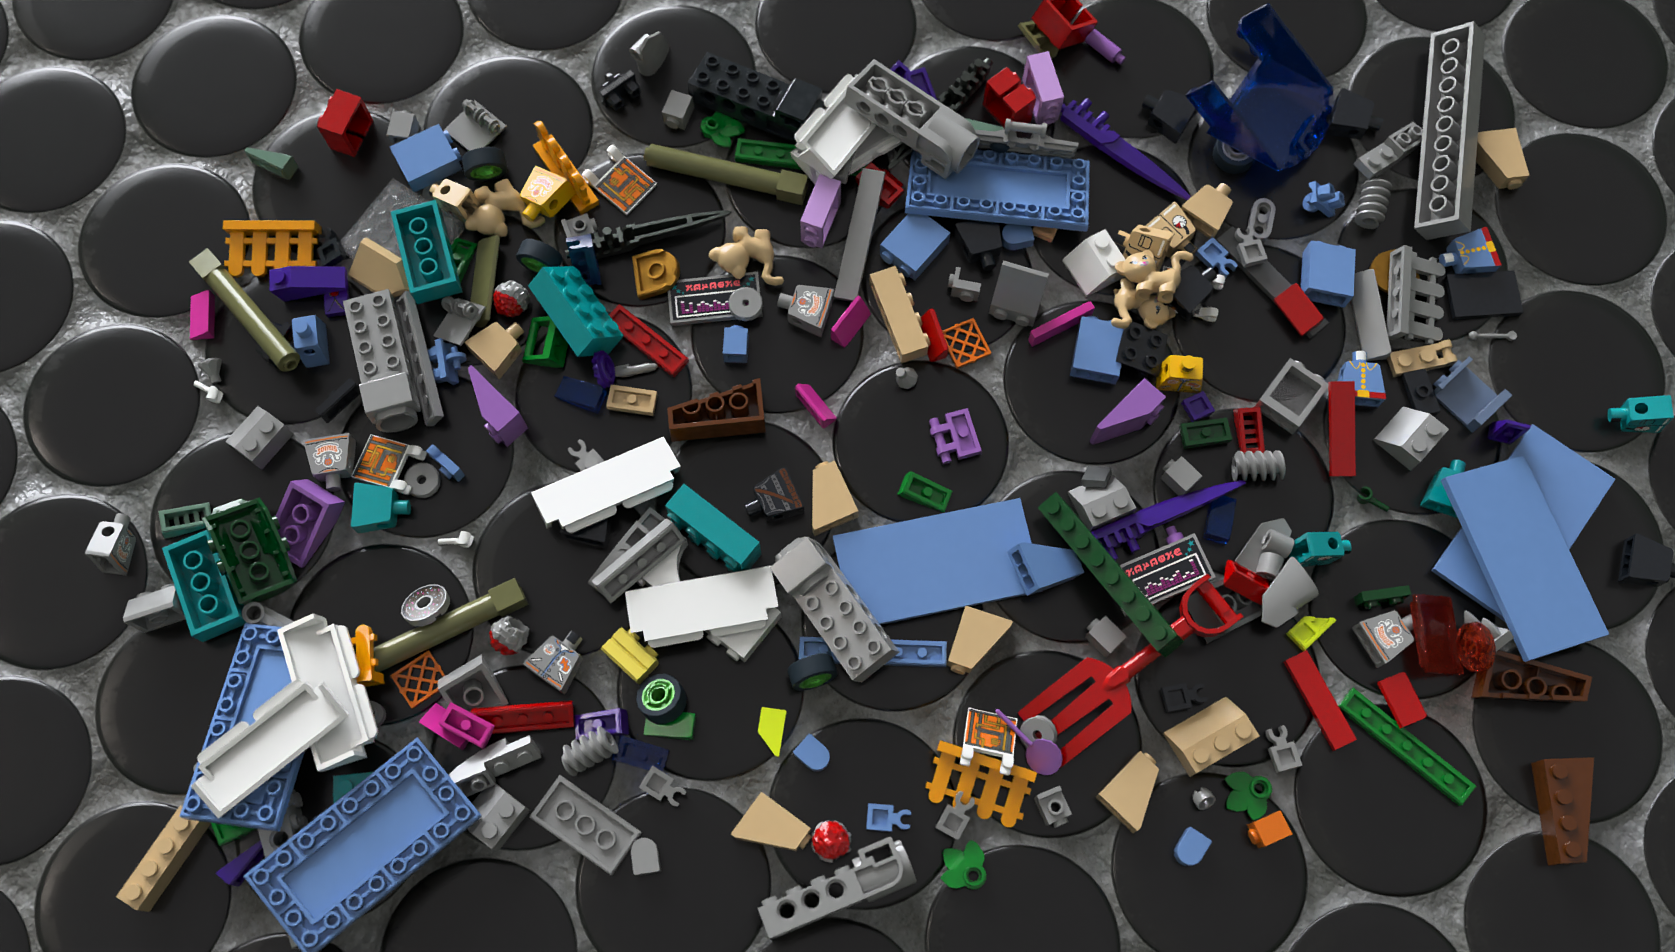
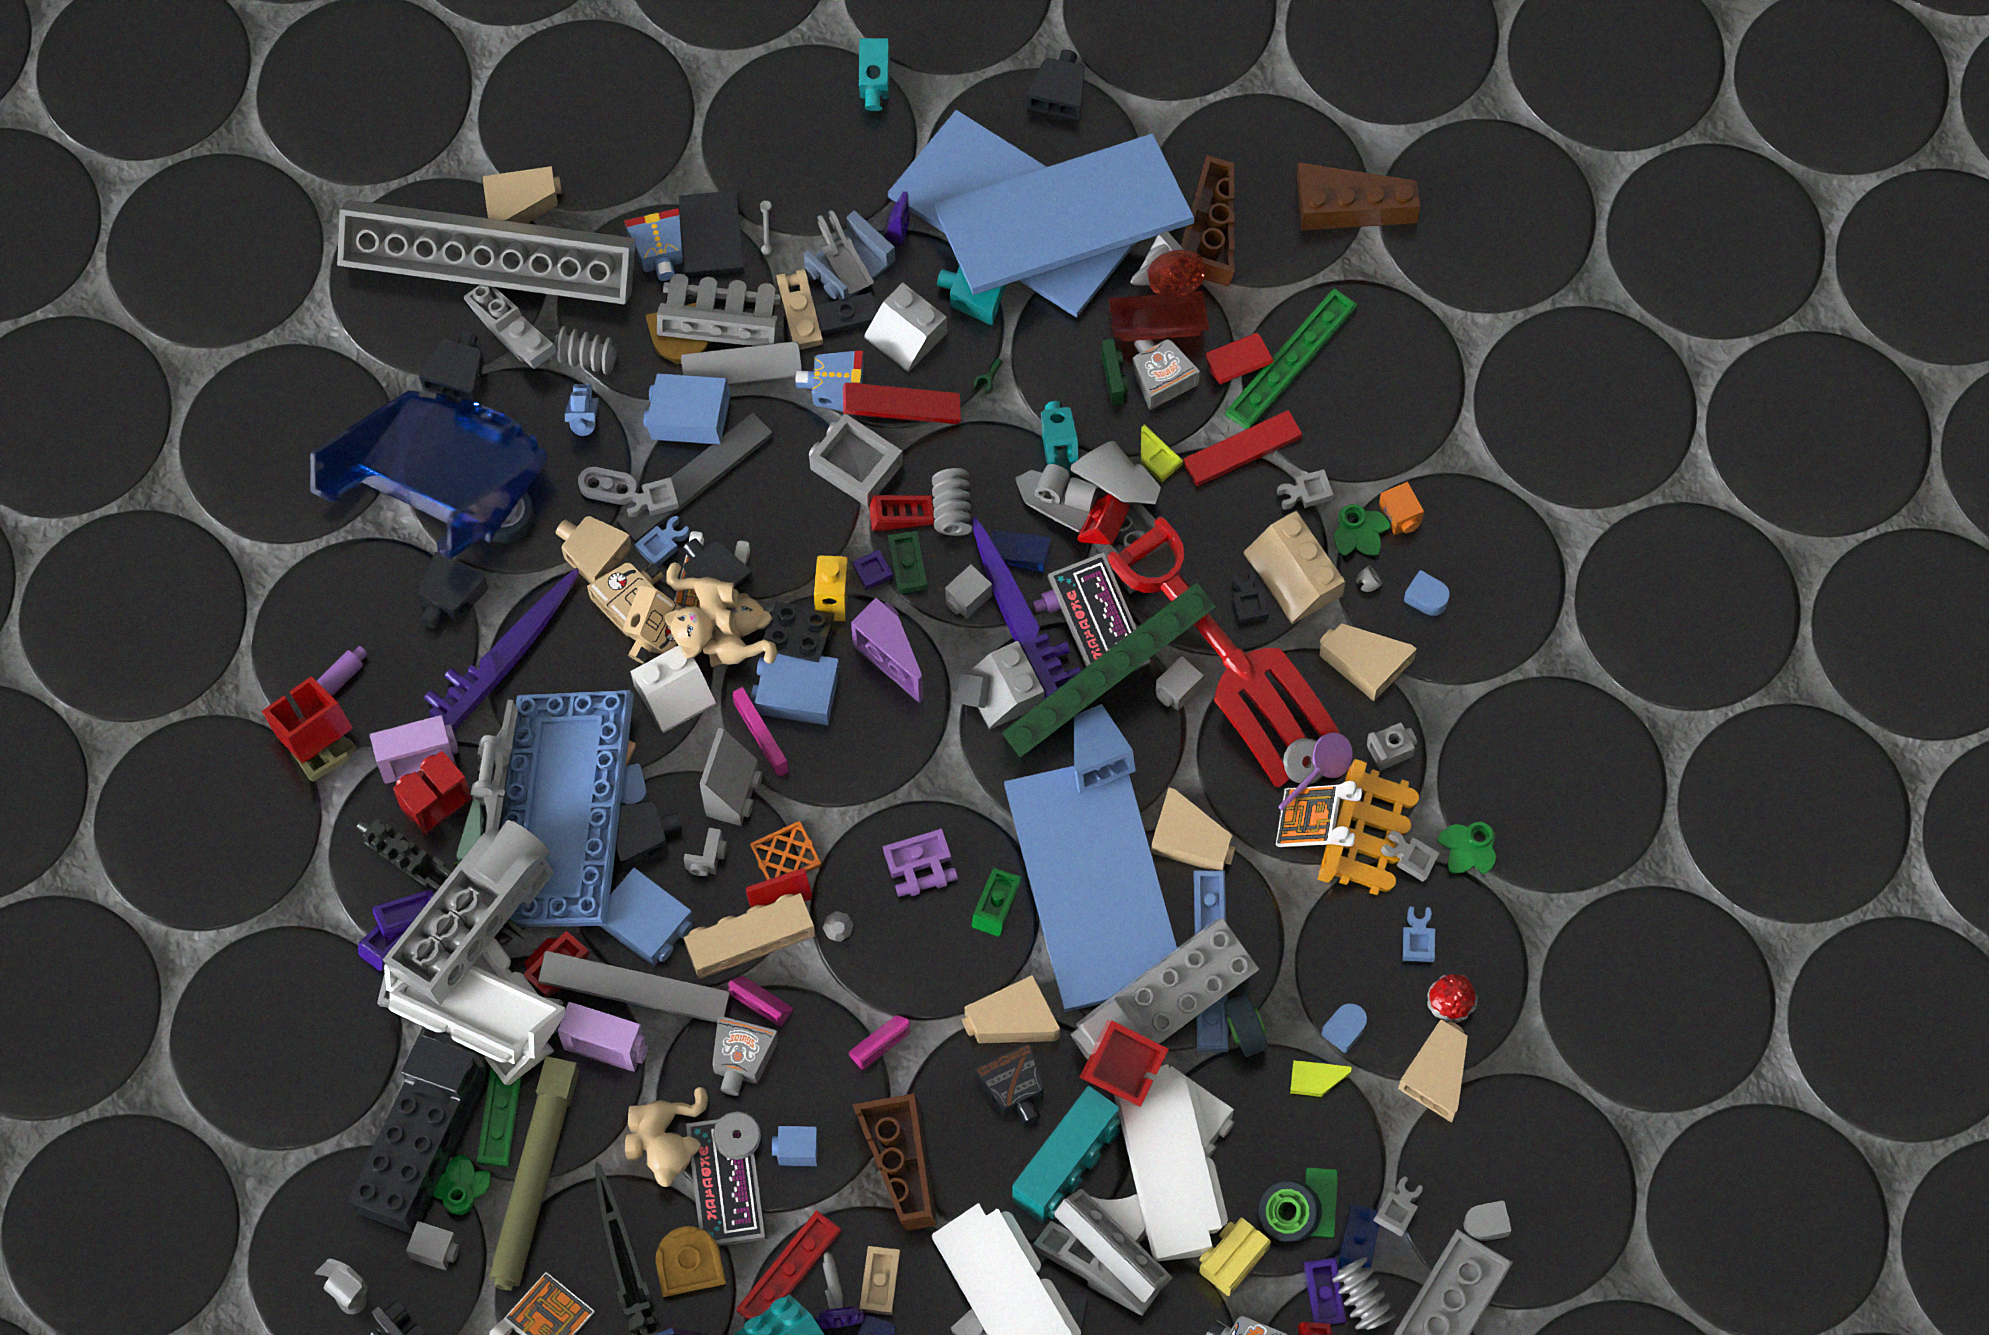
camera: 90 degrees left, 5 degrees down
(772, 565) = (1122, 1061): none -> red piece
(863, 882) = (1513, 983): light grey brick -> none
(1298, 309) = (739, 445): red slope -> none
(1469, 391) = (843, 257): none -> light grey arm

